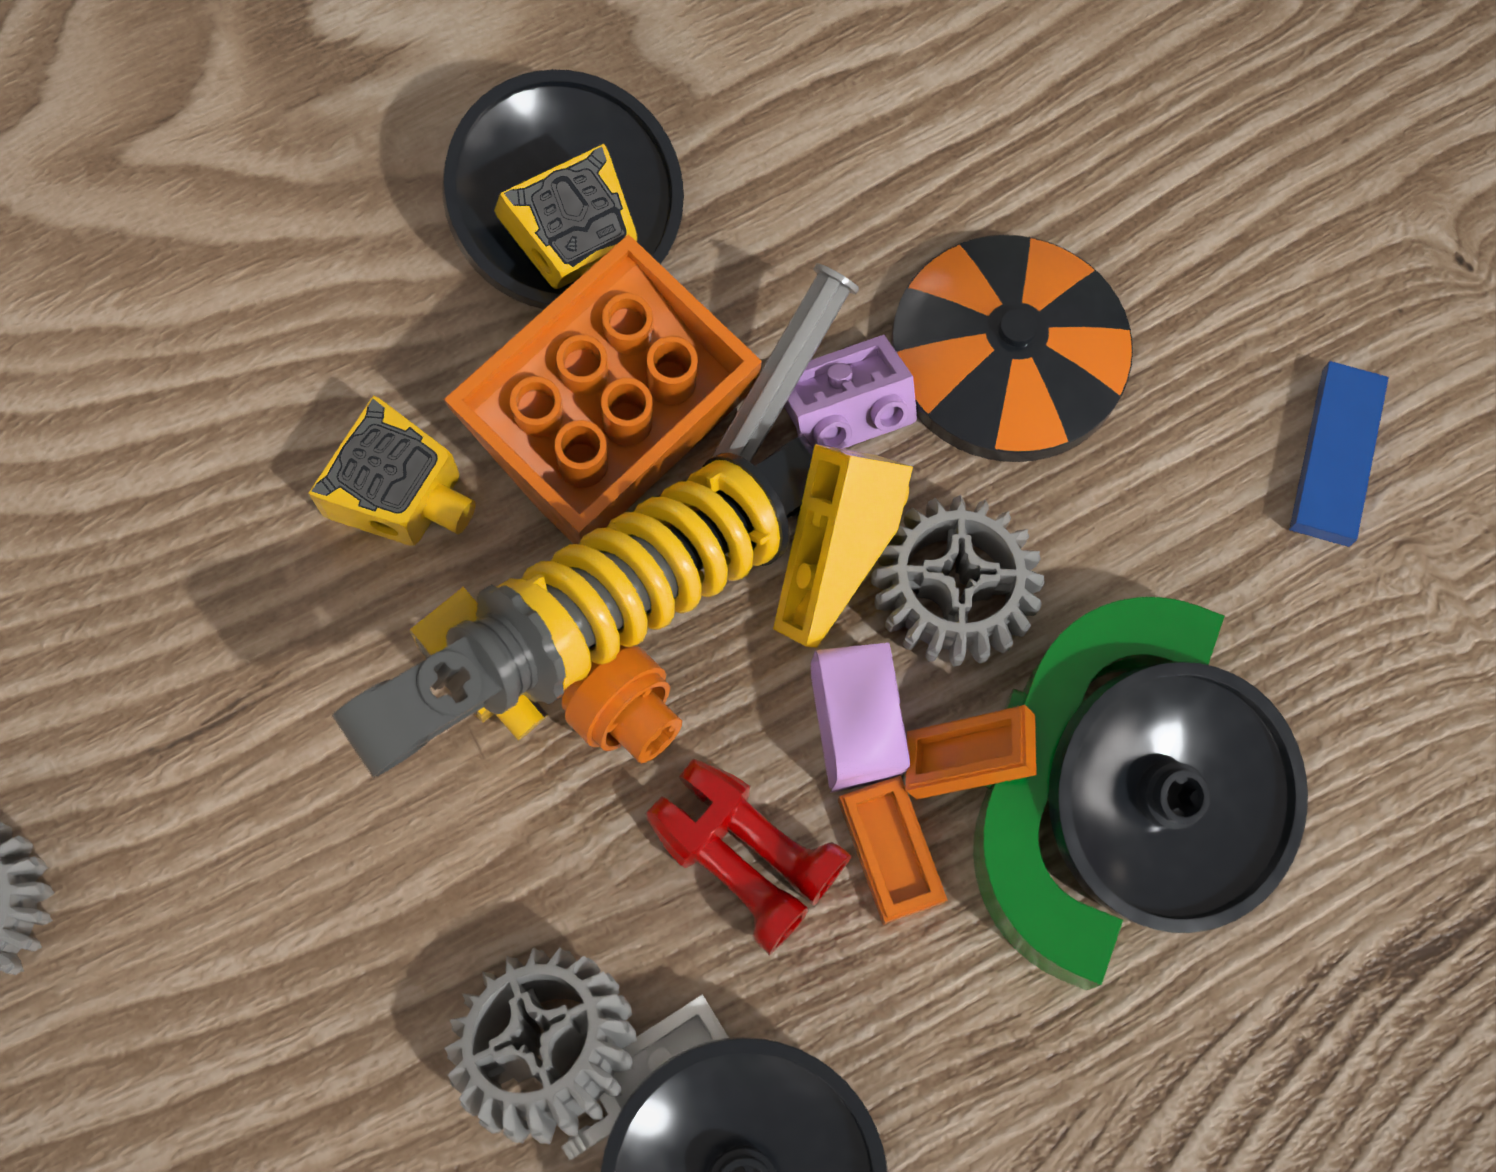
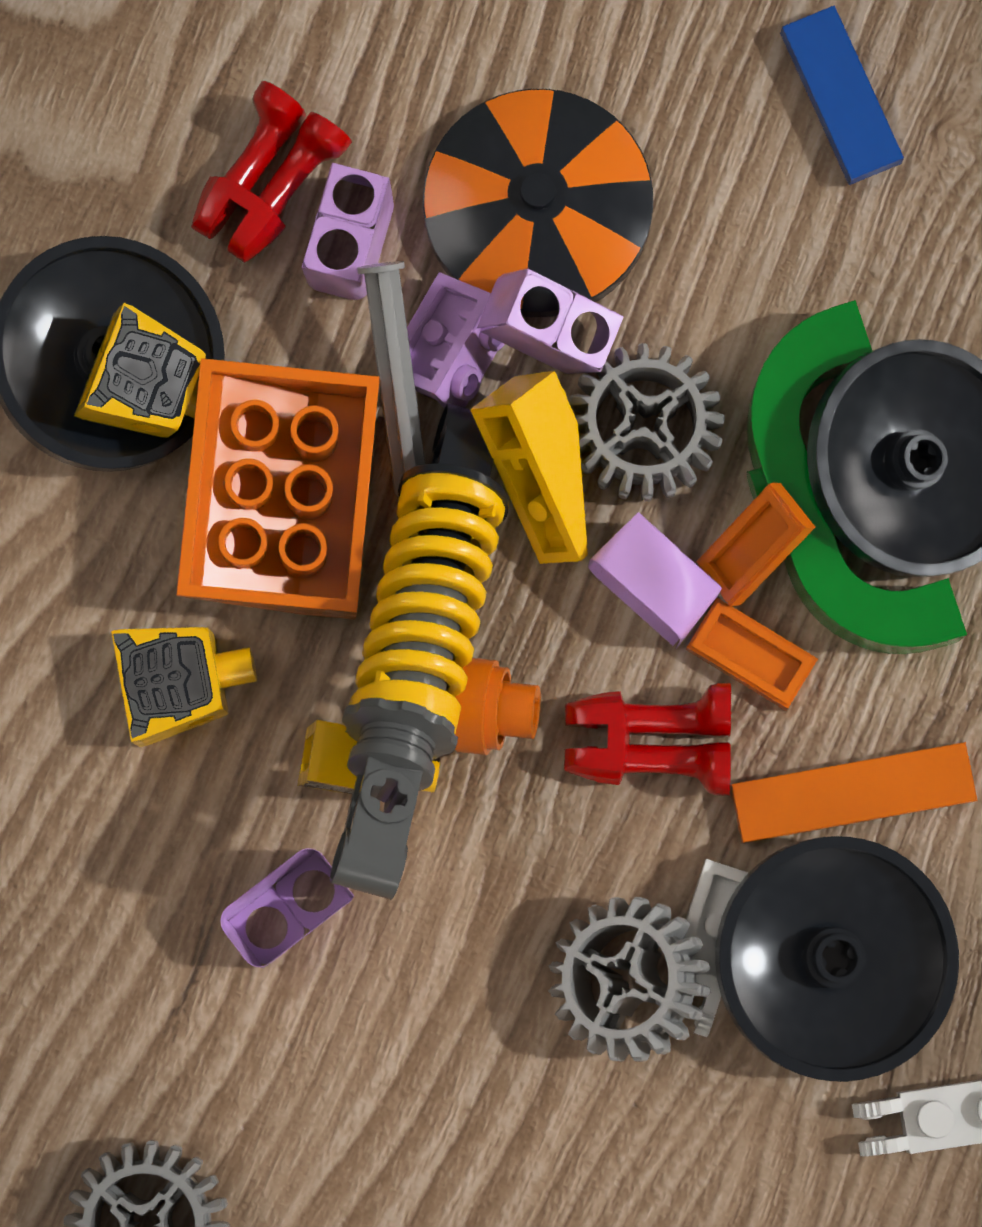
camera: 30 degrees left, 10 degrees up
(264, 709) = (264, 895): none -> lavender piece
(762, 161) = (278, 120): none -> red piece
(877, 248) = (347, 281): none -> lavender piece
(886, 1048) = (853, 792): none -> orange tile
(916, 432) = (504, 309): none -> lavender piece

